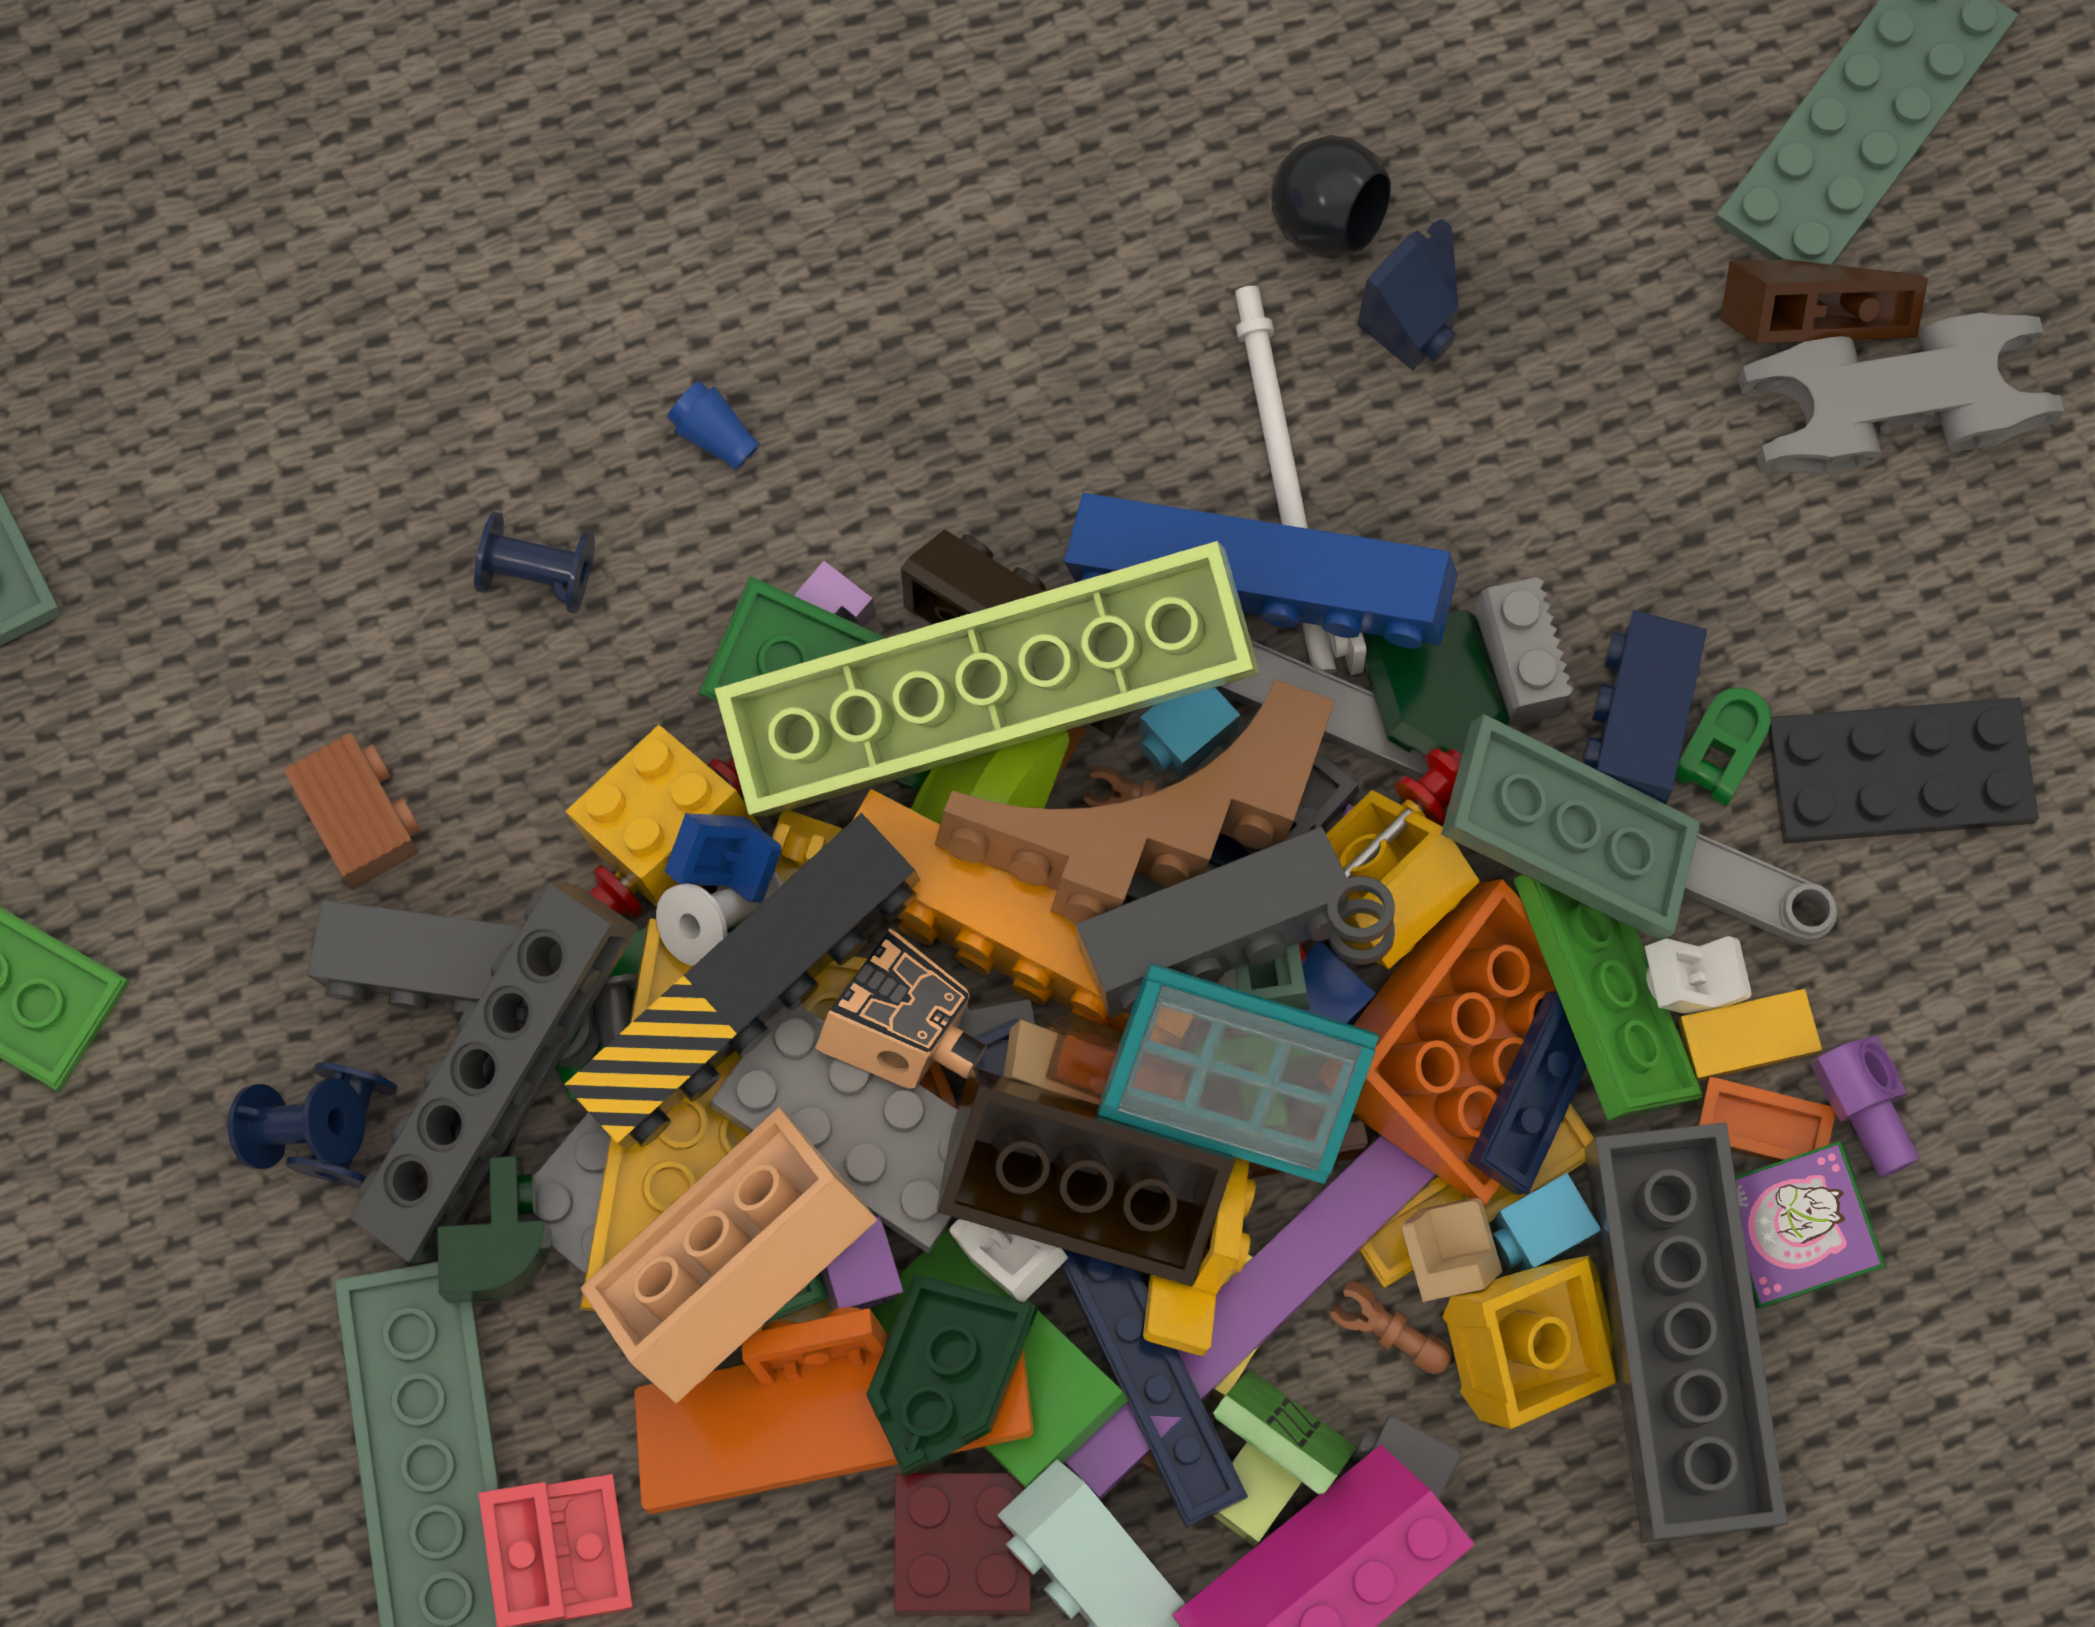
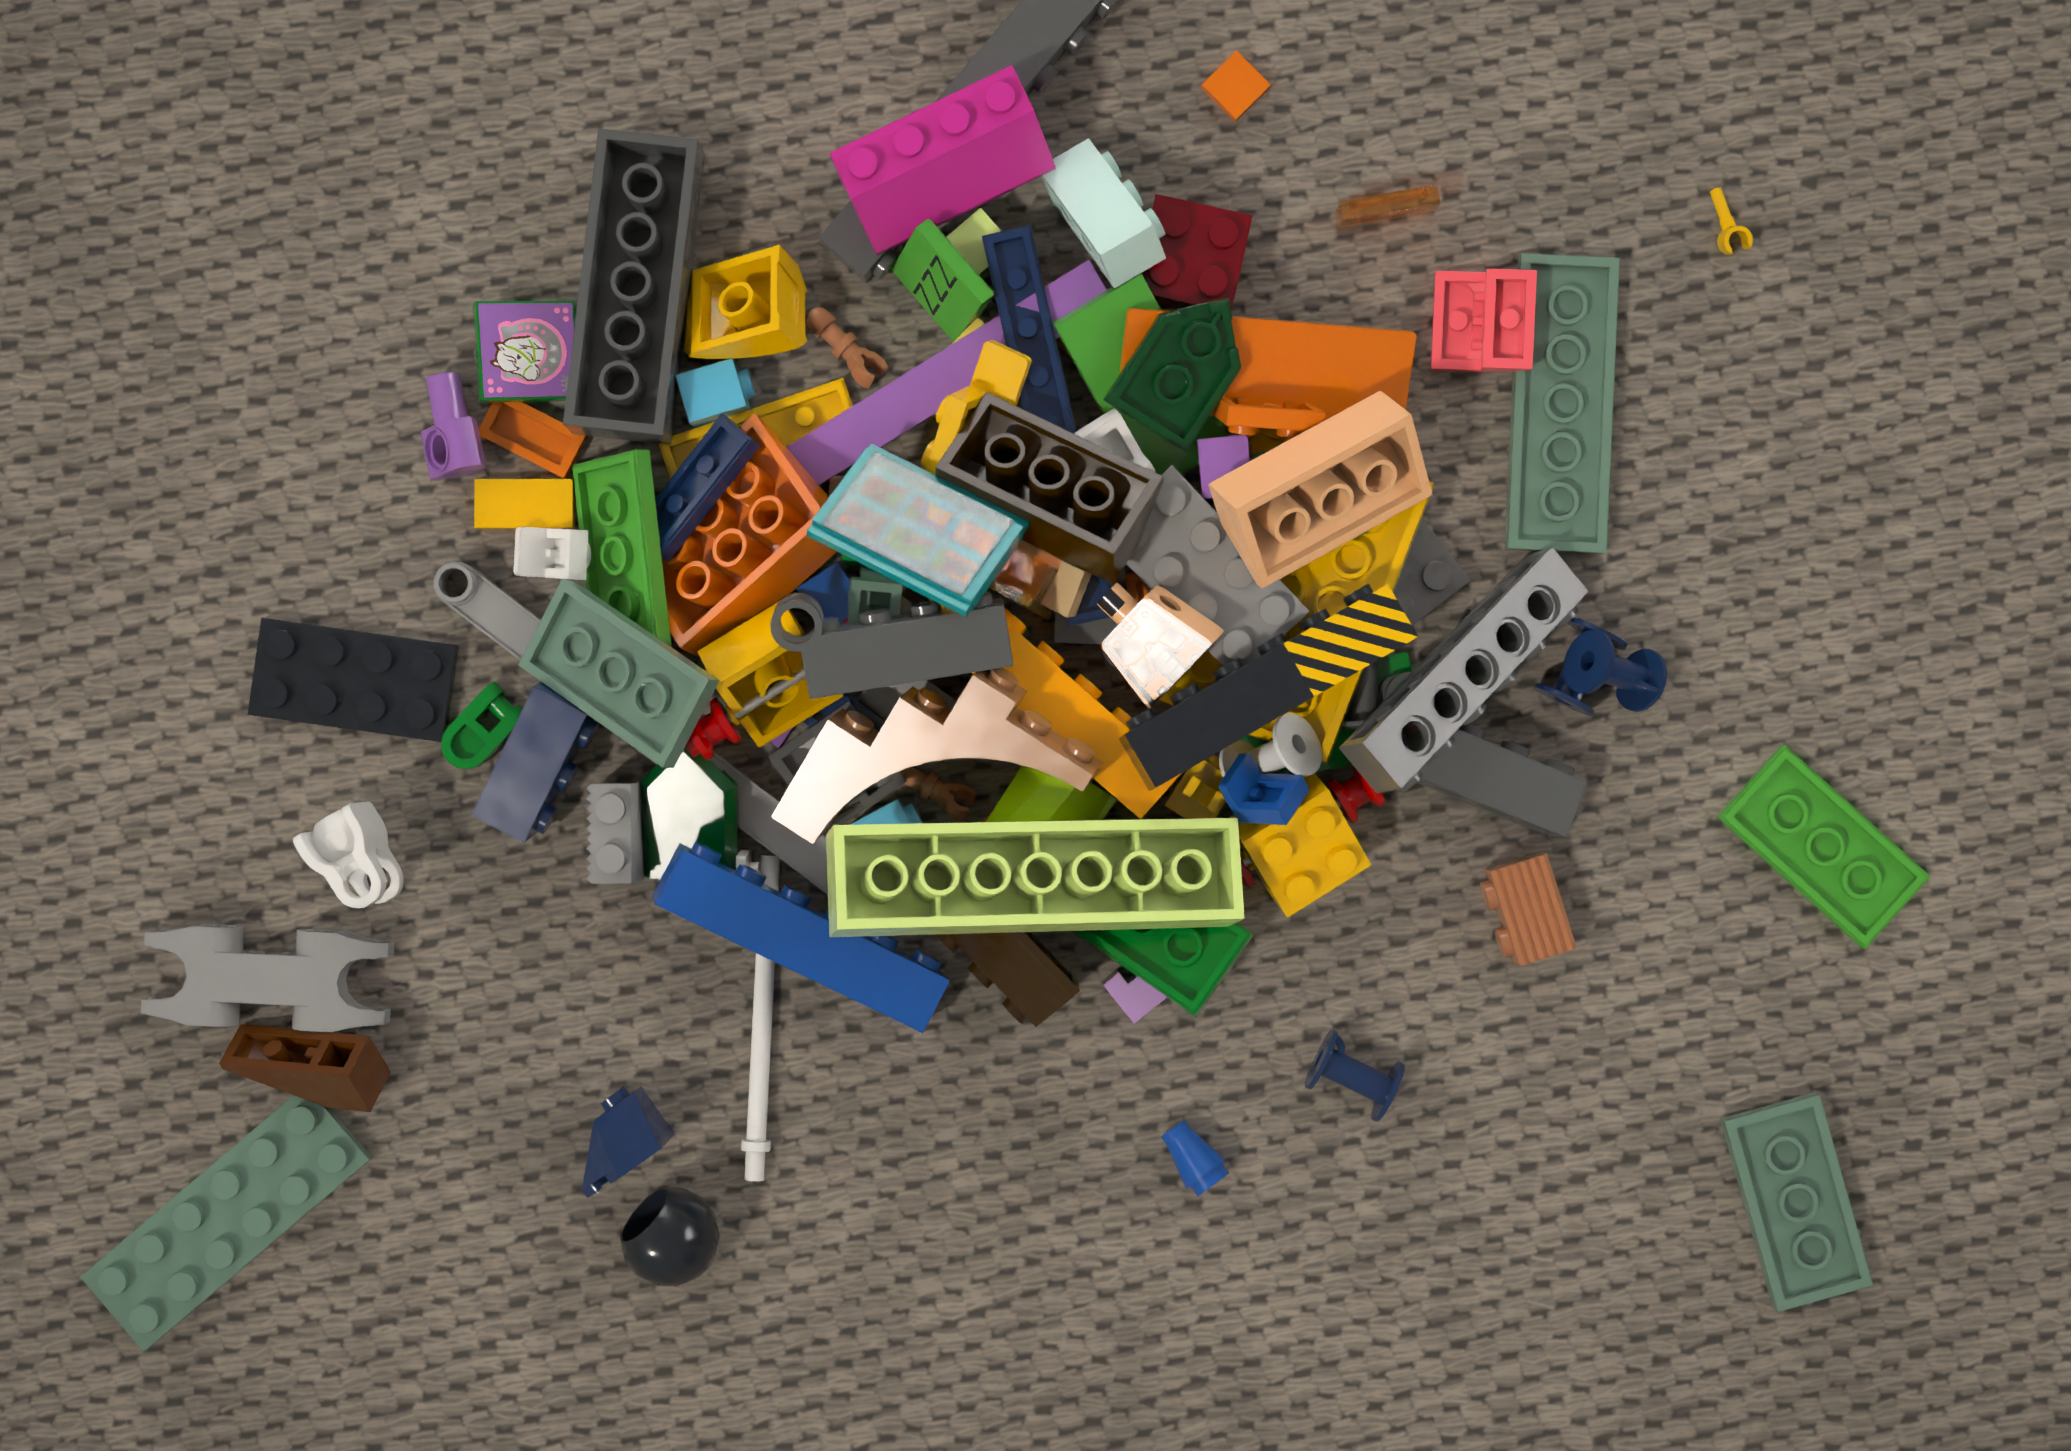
camera: 160 degrees left, 15 degrees up
(496, 1257) = (1487, 535): dark green brick -> none
(1451, 1249) = (788, 385): tan panel -> none
(1847, 555) = (348, 849): none -> white piece

